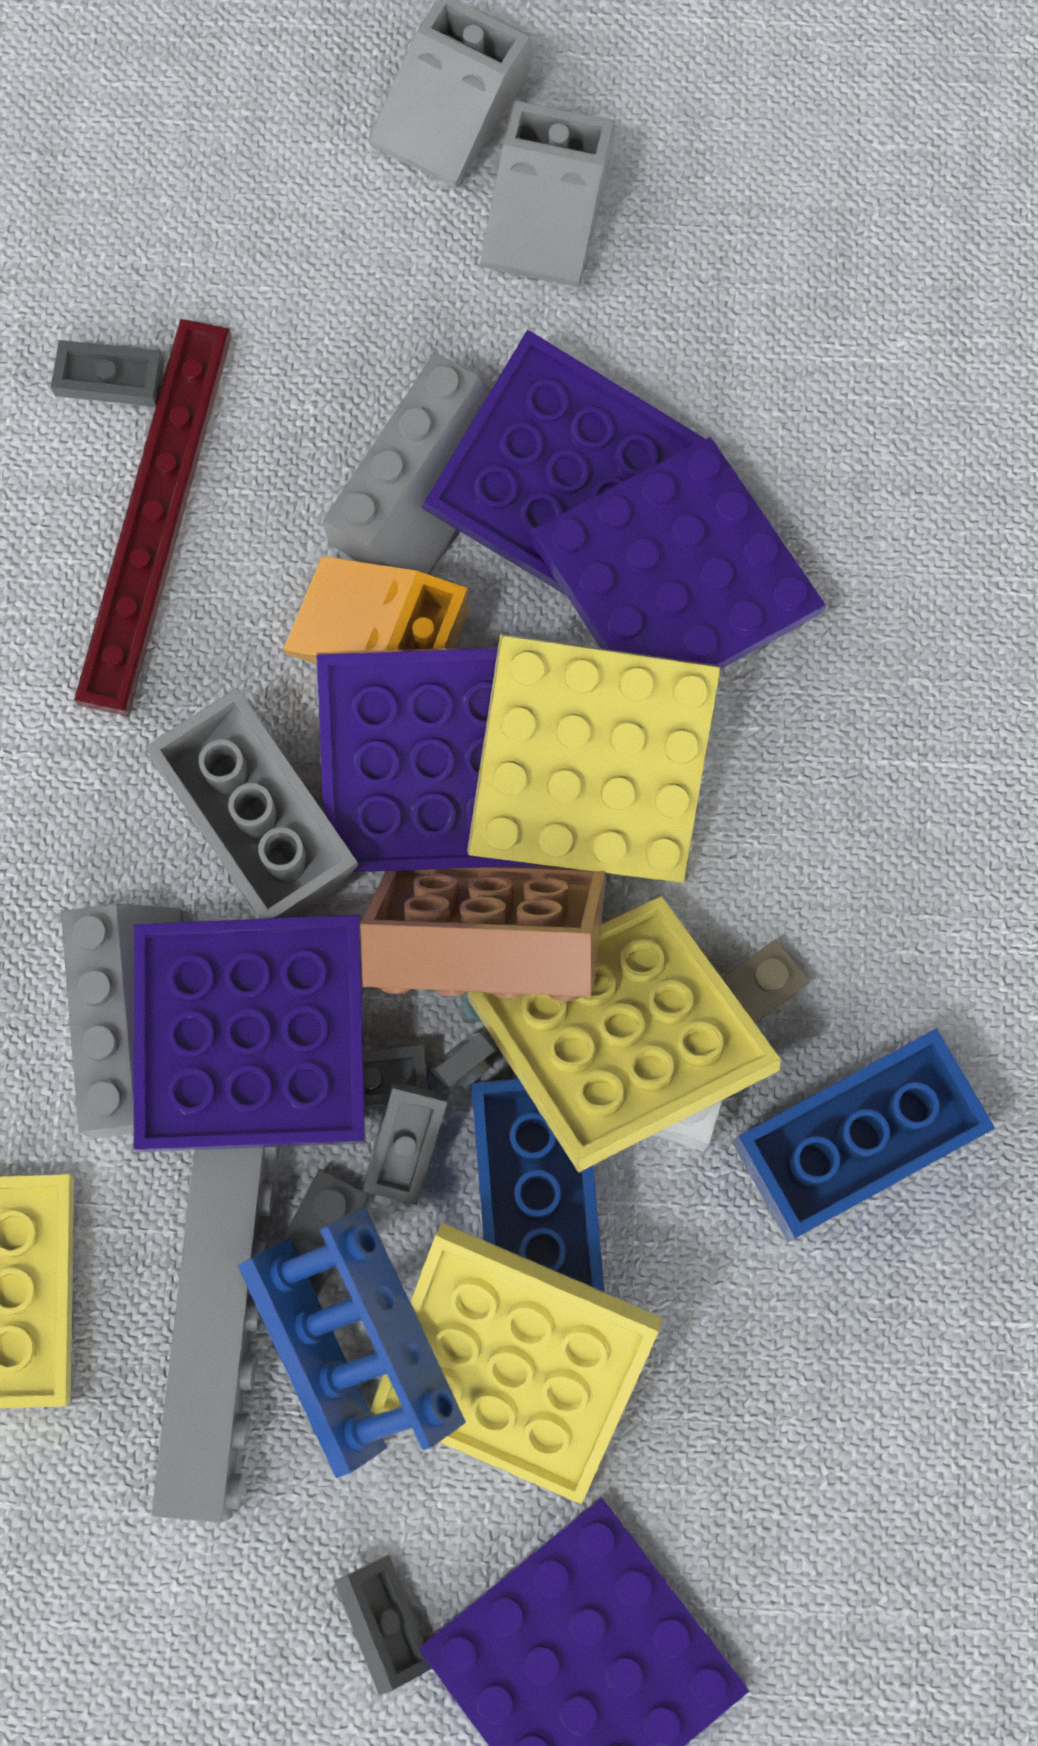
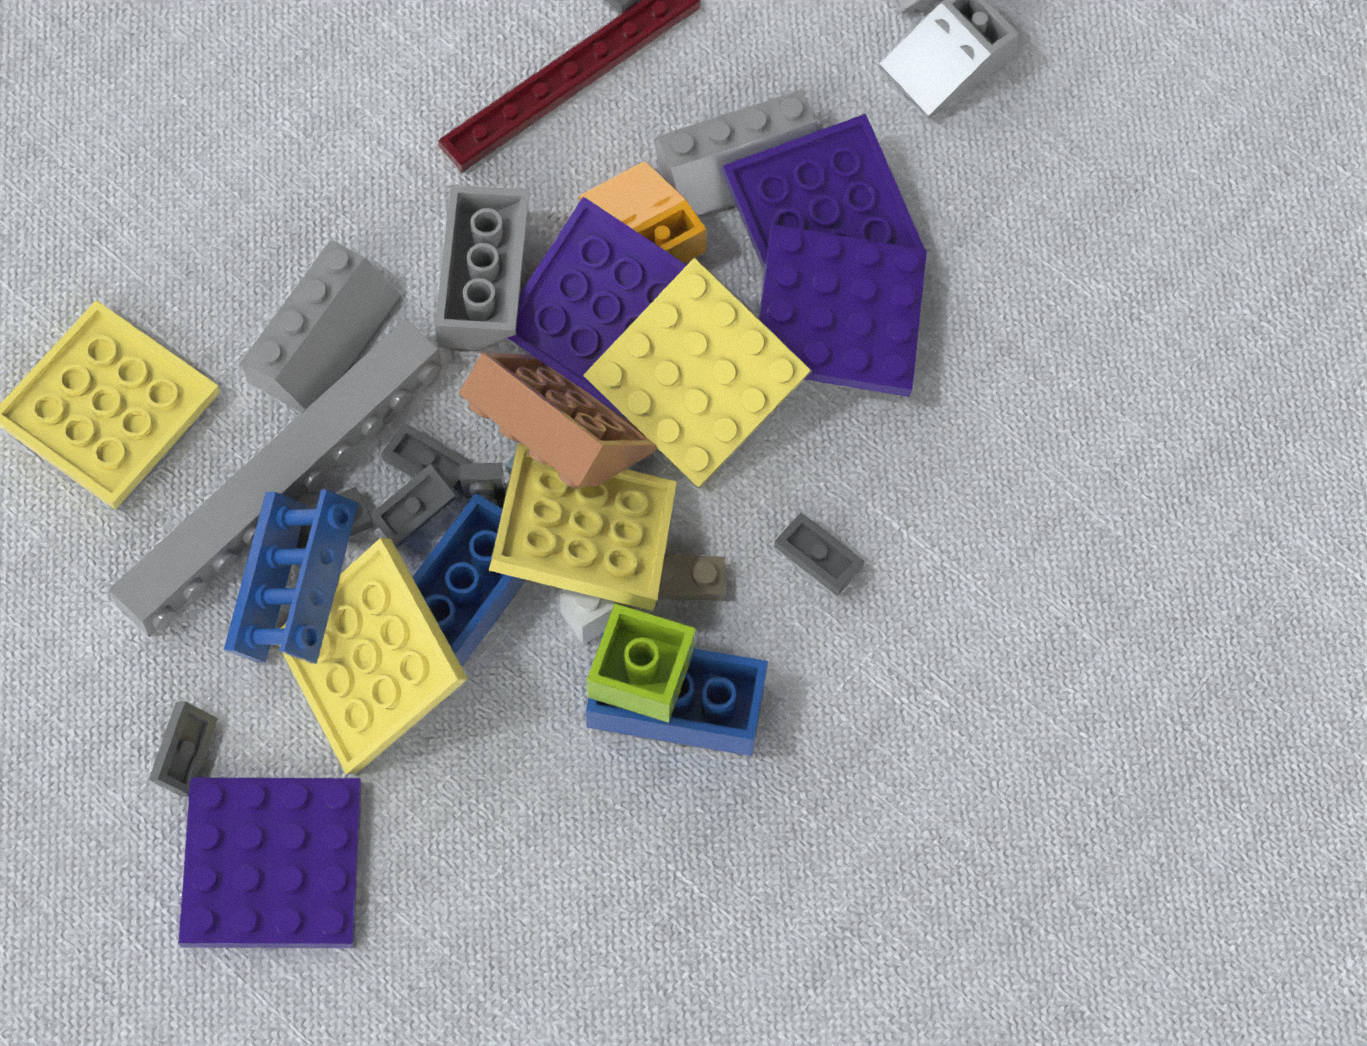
camera: 35 degrees right, 10 degrees down
(248, 1034) = (374, 376): dark purple plate -> none
(826, 1144) = (641, 662): none -> lime brick
(869, 859) = (819, 554): none -> dark grey plate

